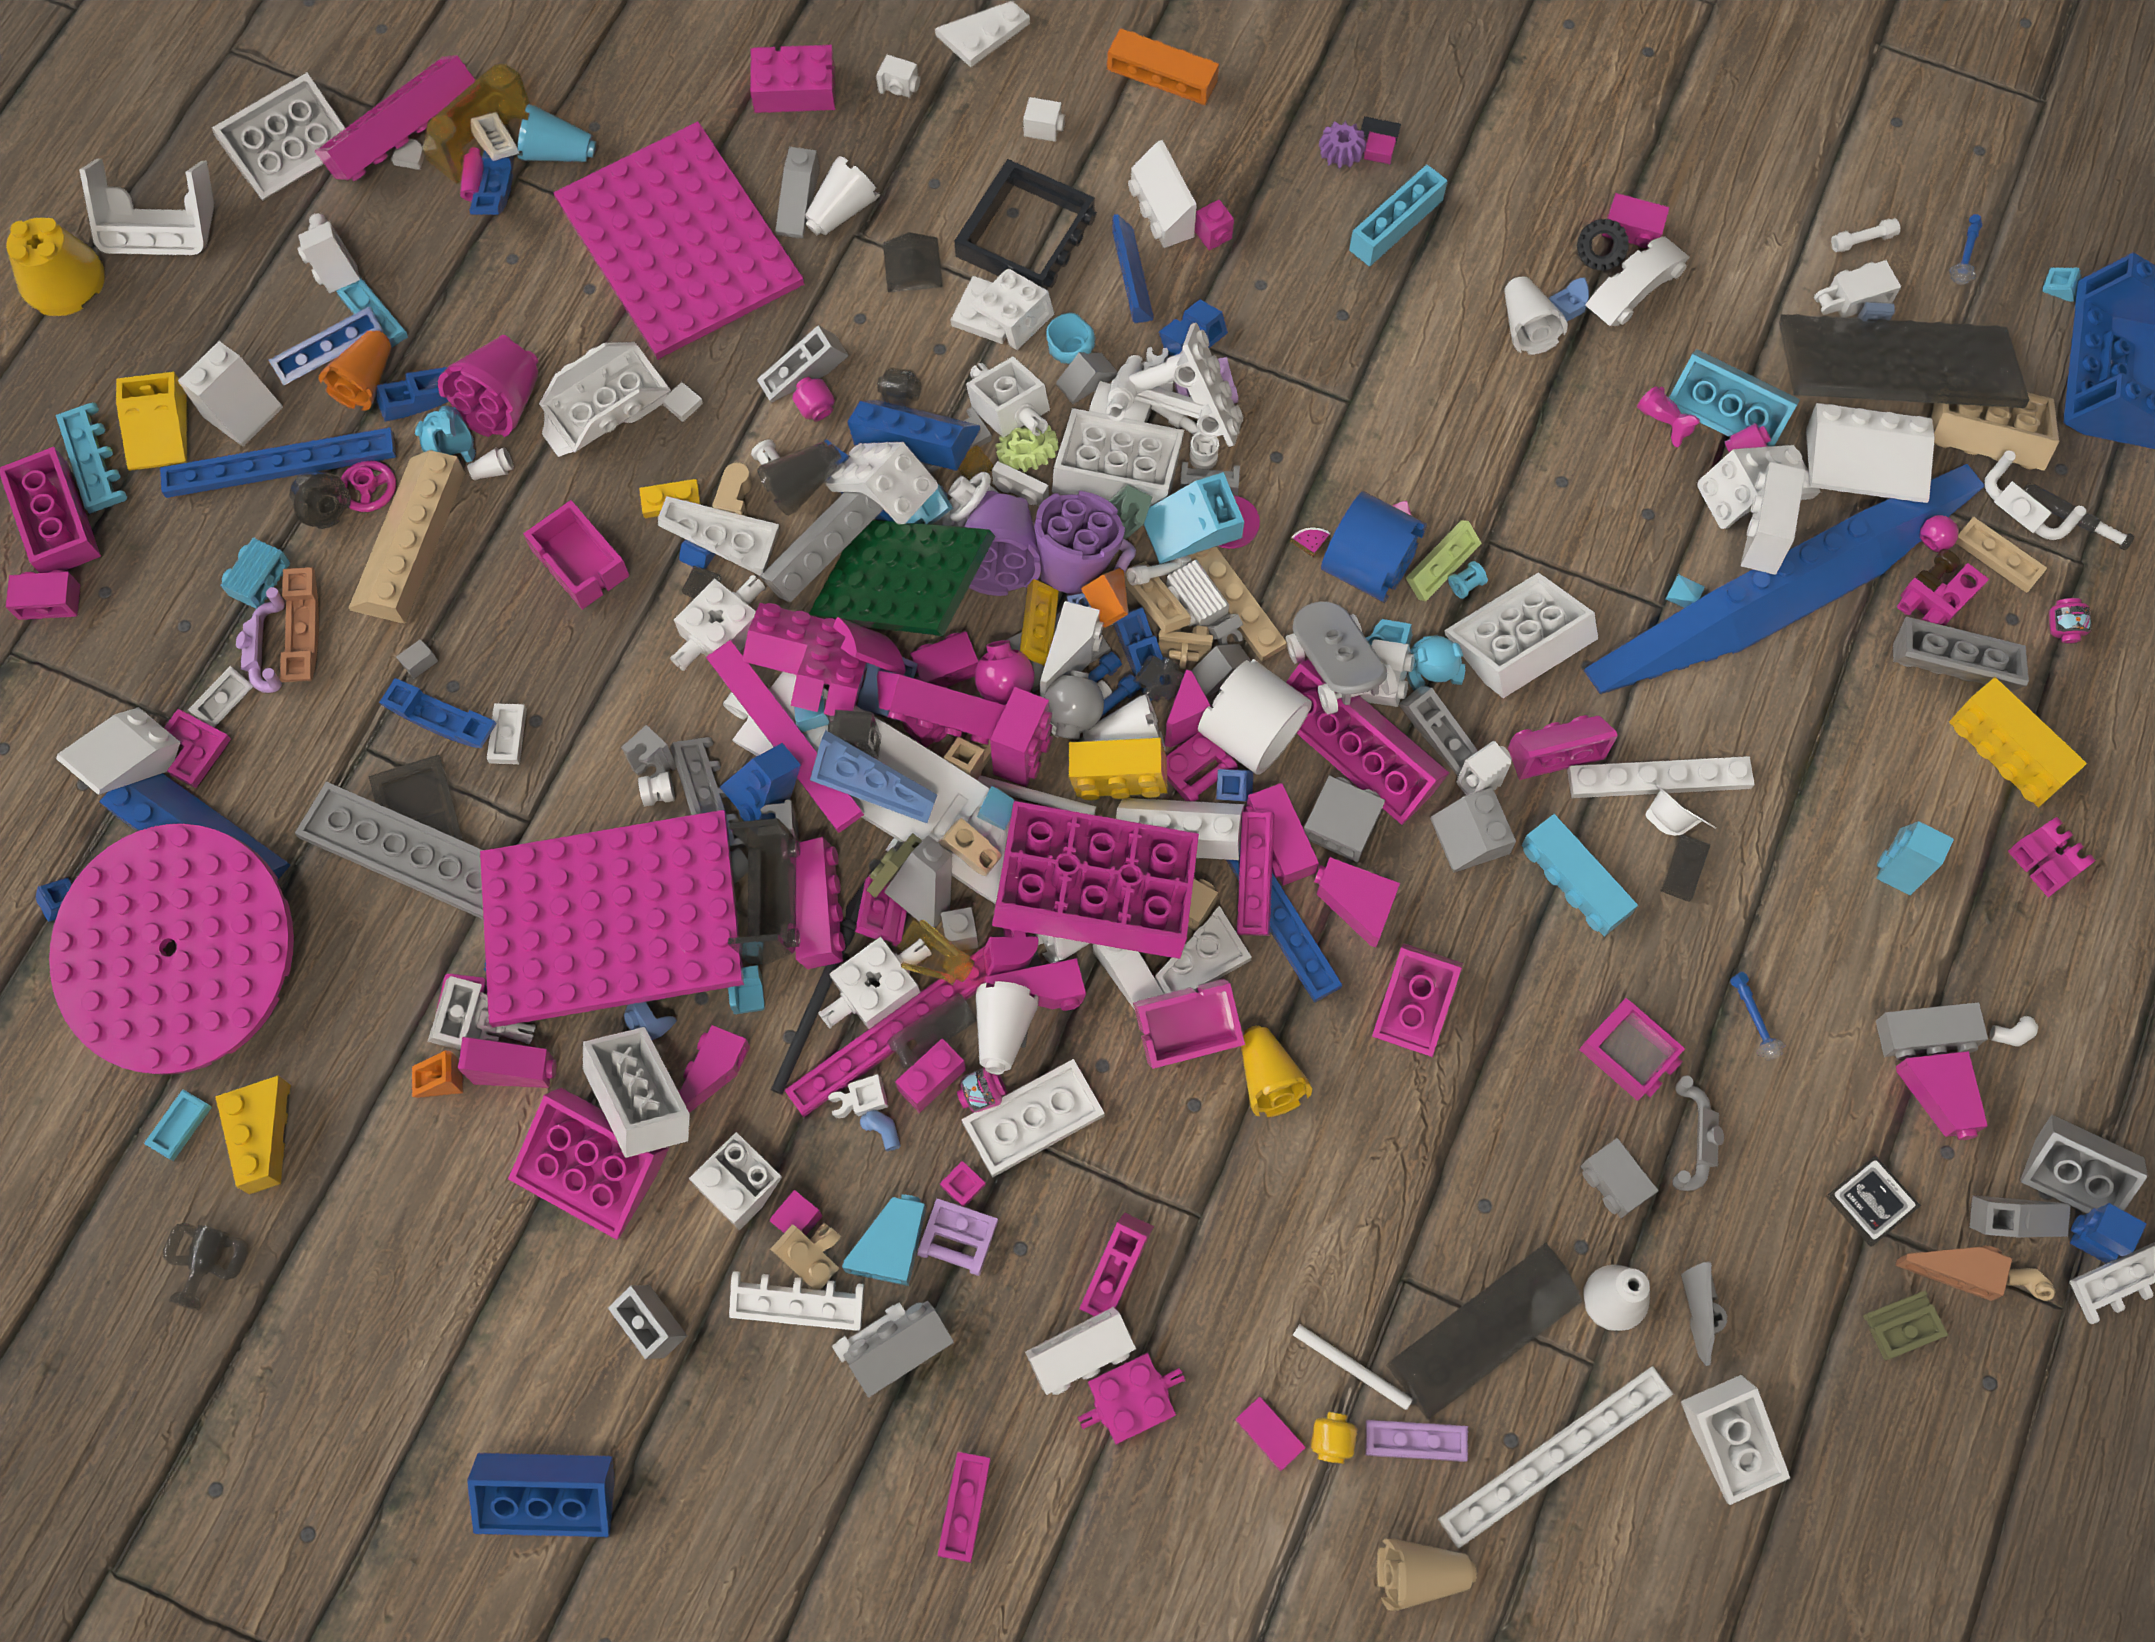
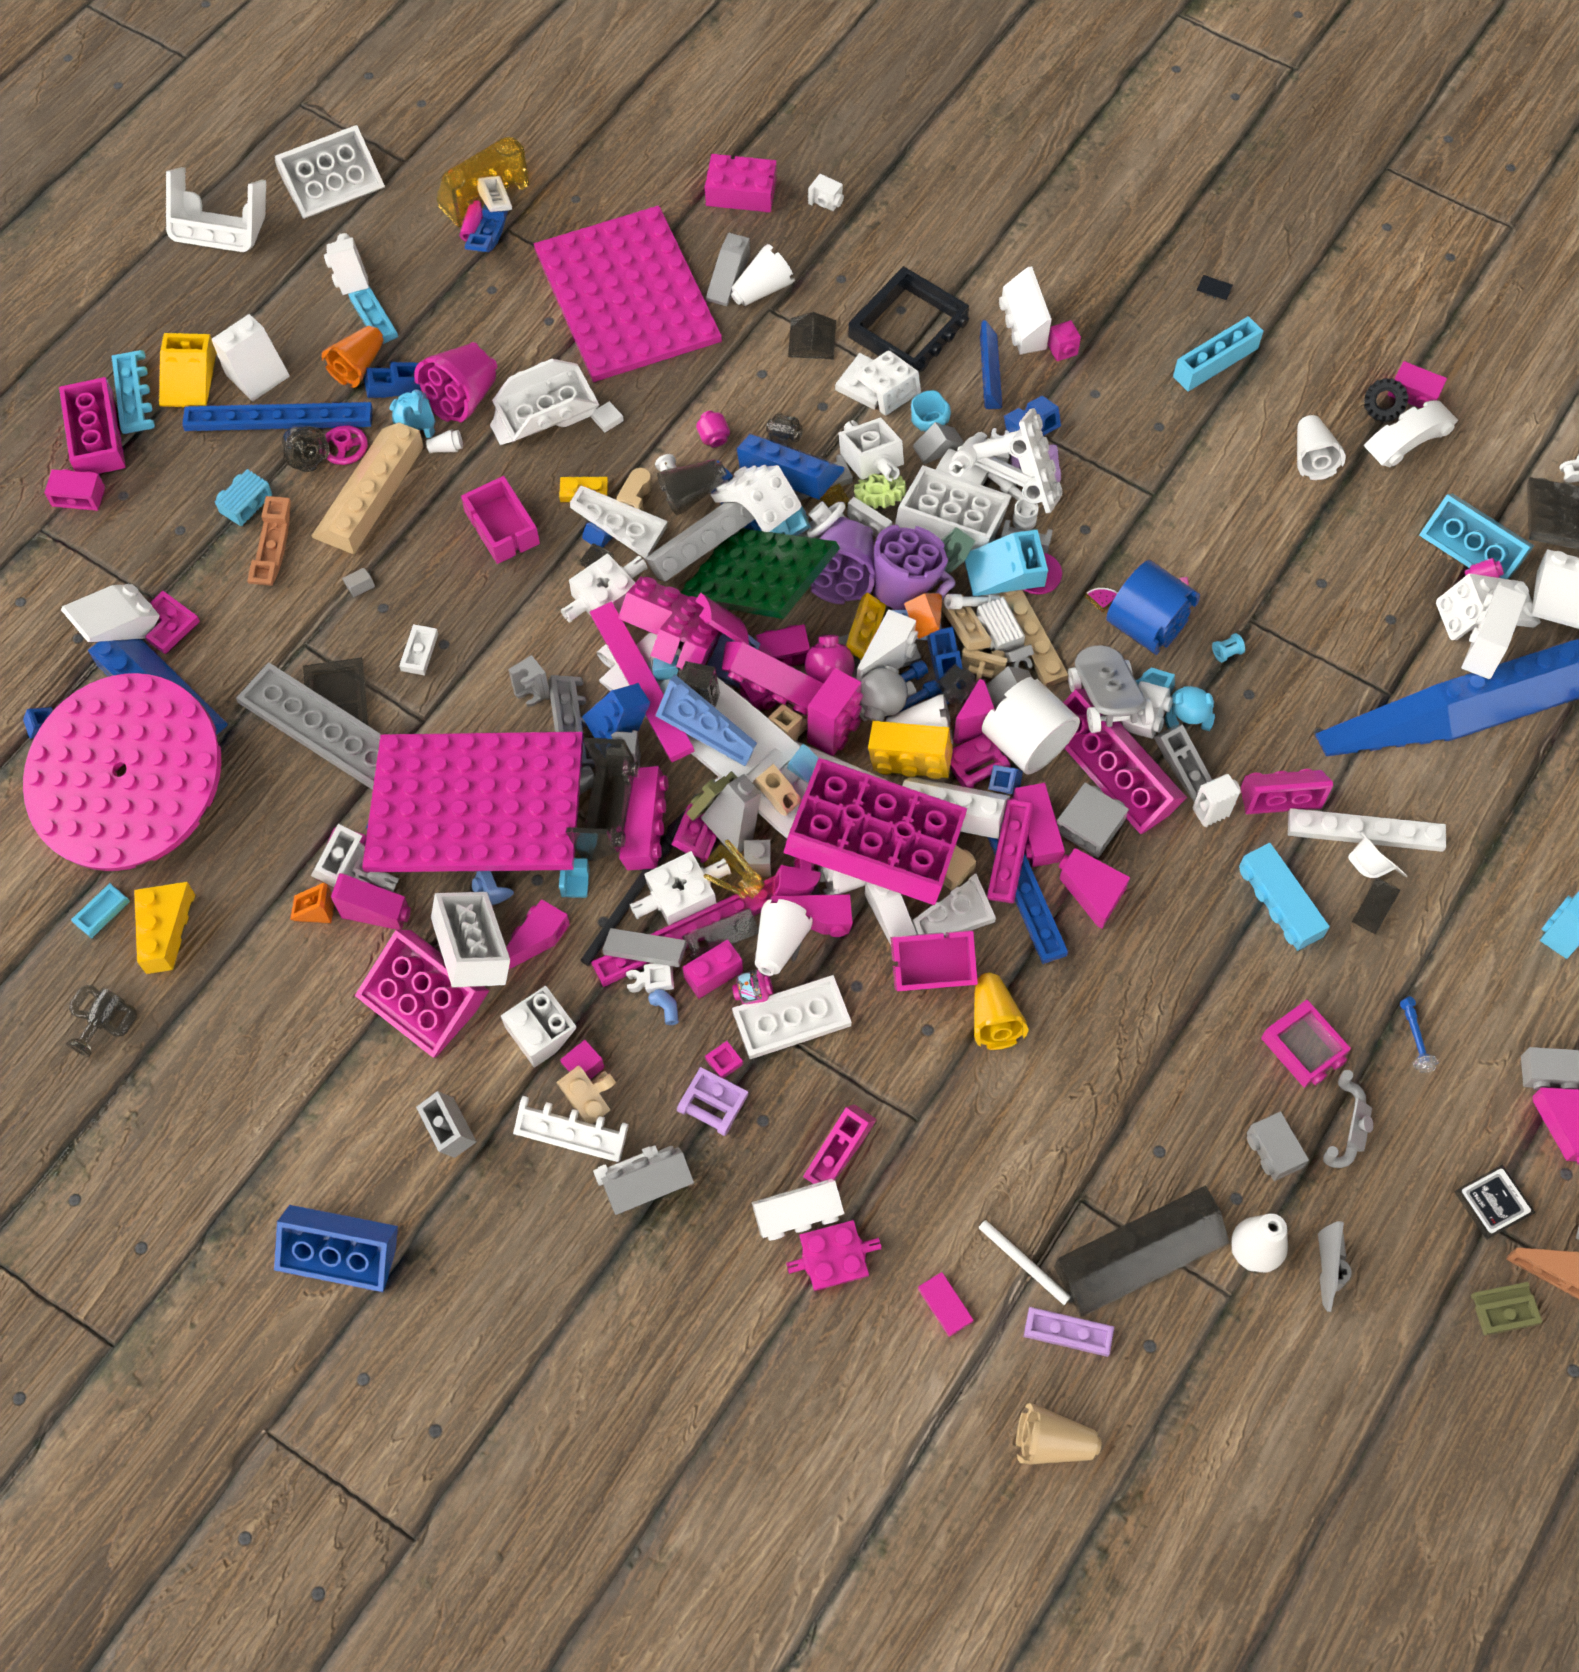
camera: 10 degrees right, 5 degrees down
(53, 267) = (131, 243): yellow cone -> none
(220, 697) = (198, 587): white slope -> none
(251, 641) = (230, 550): lavender piece -> none
(324, 346) = (326, 335): slope -> none
(394, 119) = (417, 170): dark pink brick -> none
(409, 155) = (424, 199): white tile -> none
(436, 715) = (365, 628): blue slope -> none
(552, 139) = (540, 202): medium azure cone -> none
(656, 789) = (531, 710): white wheel -> none
(811, 357) = (718, 395): light grey slope -> none
(845, 1063) = (644, 947): none -> light grey tile
(890, 1243) = (655, 1096): medium azure slope -> none
(964, 1507) = (678, 1318): dark pink plate -> none
(983, 32) = (901, 169): white wing -> none
(1043, 119) = (938, 241): white brick -> none
(1162, 66) = (1043, 213): orange brick -> none
(1334, 1438) = (998, 1315): yellow head -> none
(1342, 144) = (1181, 293): medium lavender gear -> none
(1379, 148) = (1211, 301): dark pink slope -> none
(1417, 999) = (1129, 974): dark pink slope -> none
(1443, 560) = (1210, 629): yellowish green plate -> none
(1473, 830) = (1200, 847): light grey slope -> none
(1523, 634) = (1269, 697): white slope -> none
(1555, 1457) = (1185, 1365): white tile -> none
(1572, 299) = (1353, 440): medium blue plate -> none
(1664, 409) = (1415, 535): dark pink animal -> none
(1684, 591) = (1411, 684): medium azure slope -> none
(1736, 1438) = (1344, 1376): white slope -> none

